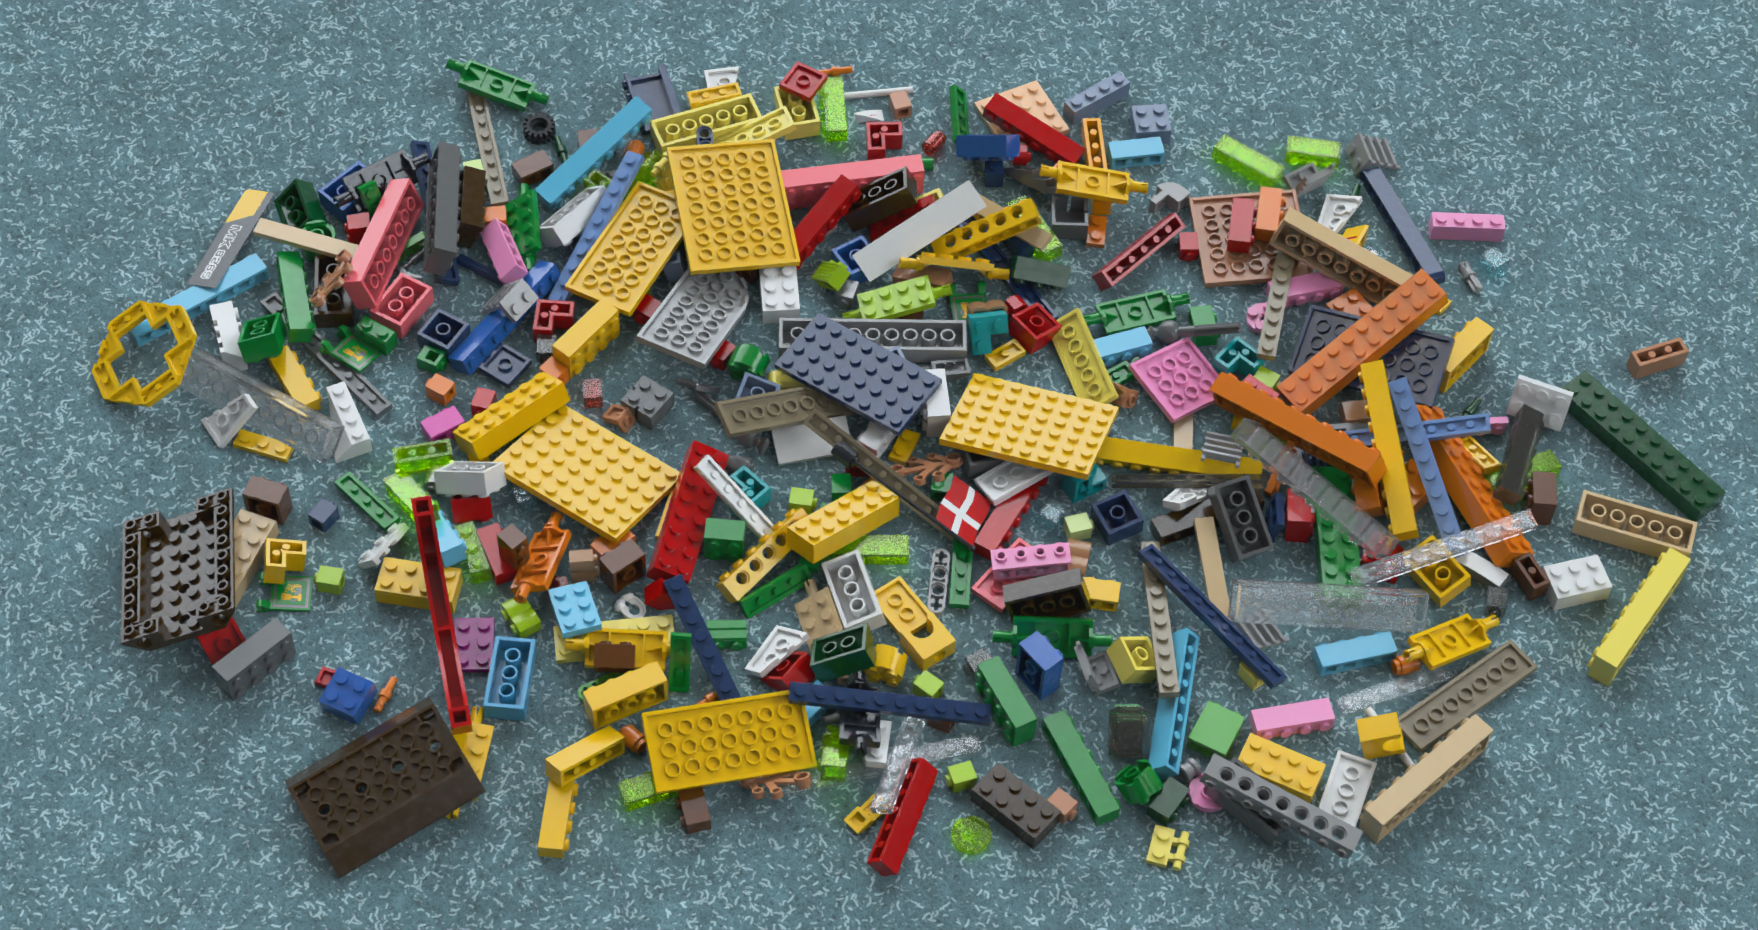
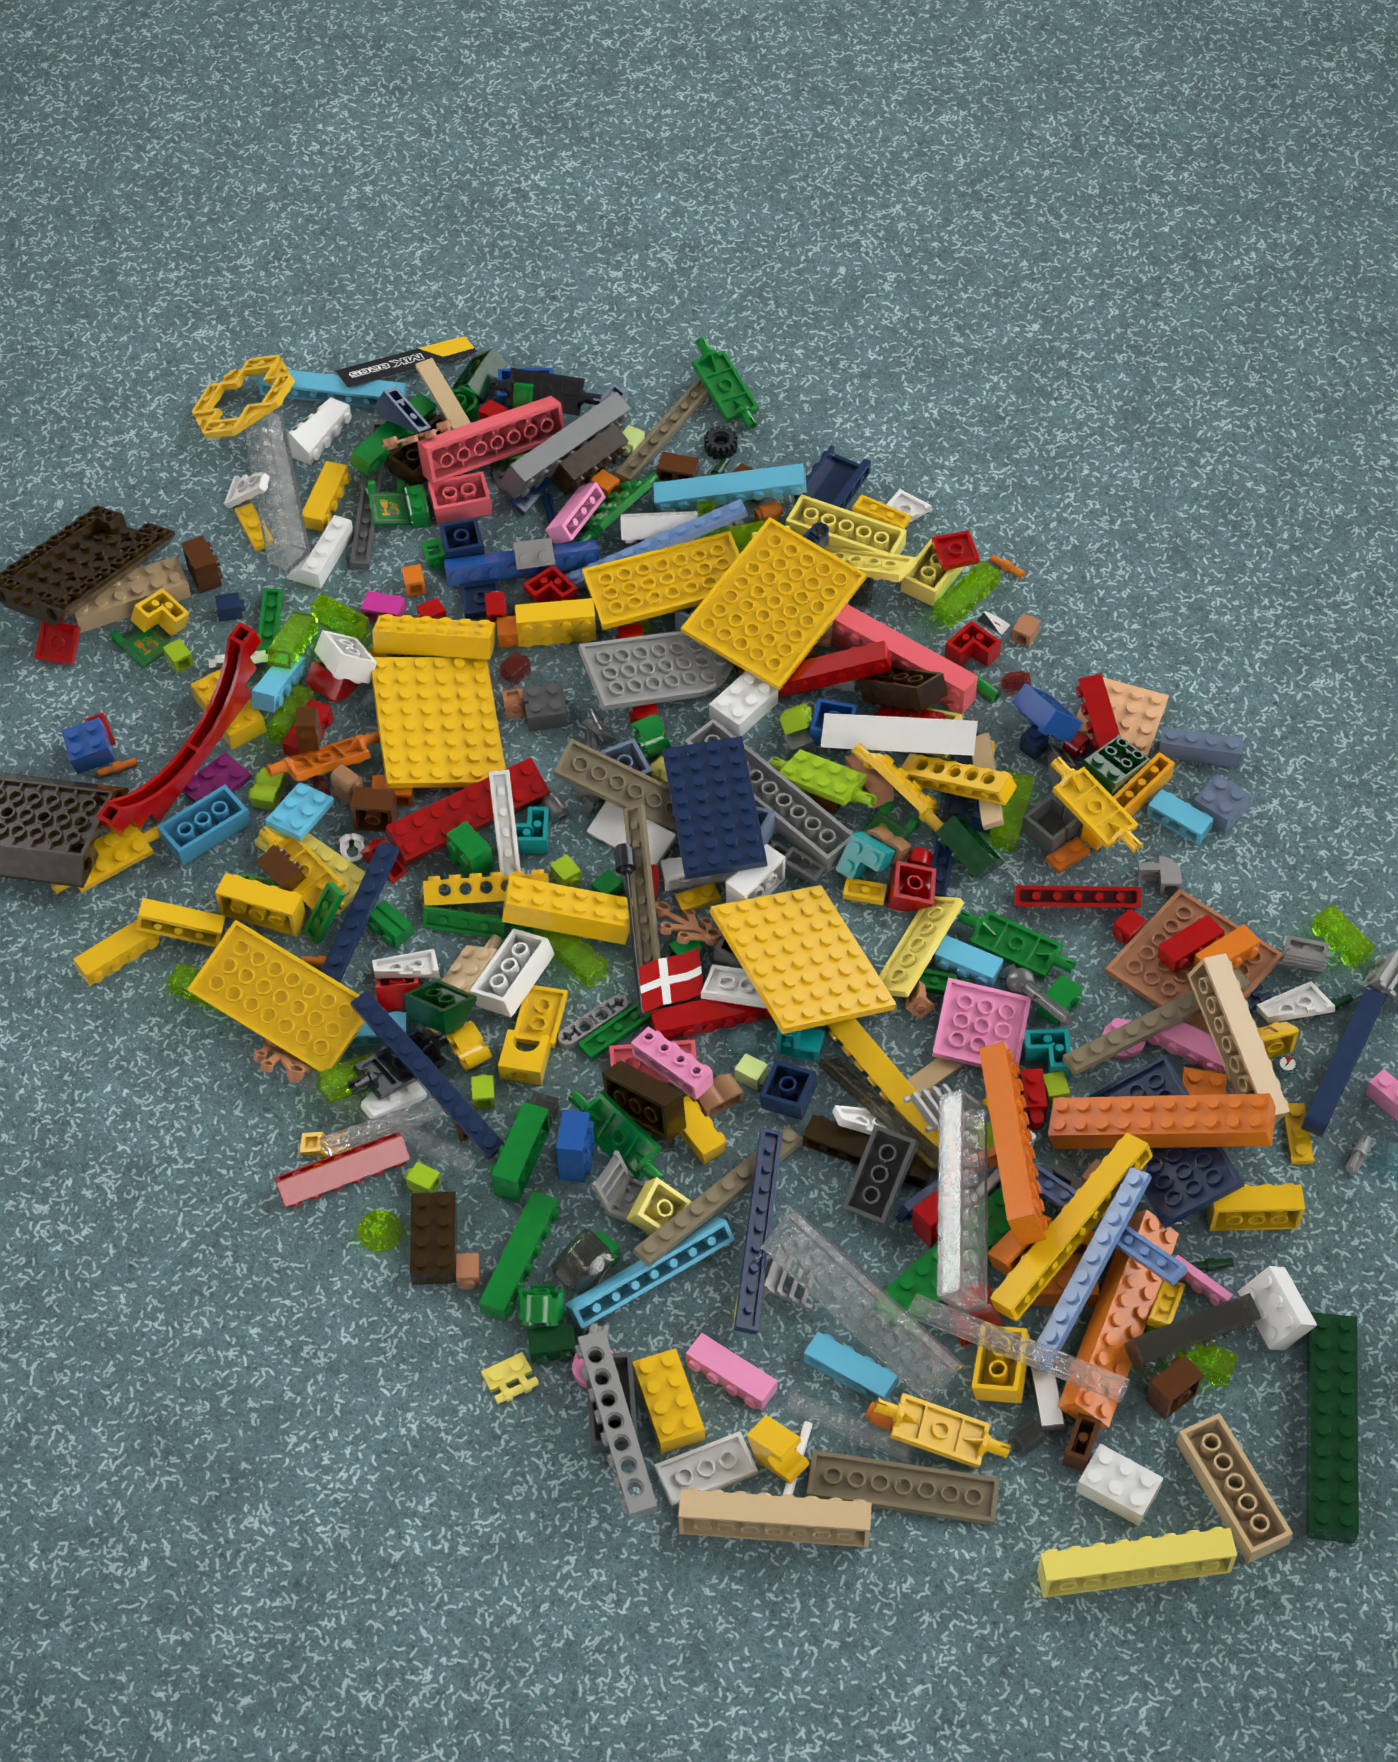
camera: 50 degrees right, 0 degrees up
(254, 659) = (59, 668): dark grey brick -> none
(262, 338) = (329, 445): green brick -> none
(289, 272) = (400, 411): none -> dark blue slope
(529, 360) = (495, 605): none -> red brick
(694, 810) = (210, 1030): reddish brown brick -> none
(875, 93) = (1021, 608): white bar -> none
(958, 111) = (1068, 672): green plate -> none
(1068, 145) = (1115, 764): none -> dark green slope
(1211, 563) = (827, 1181): tan tile -> none
(1215, 730) = (658, 1325): bright green brick -> none
(1247, 162) = (1271, 900): clear neon green brick -> none

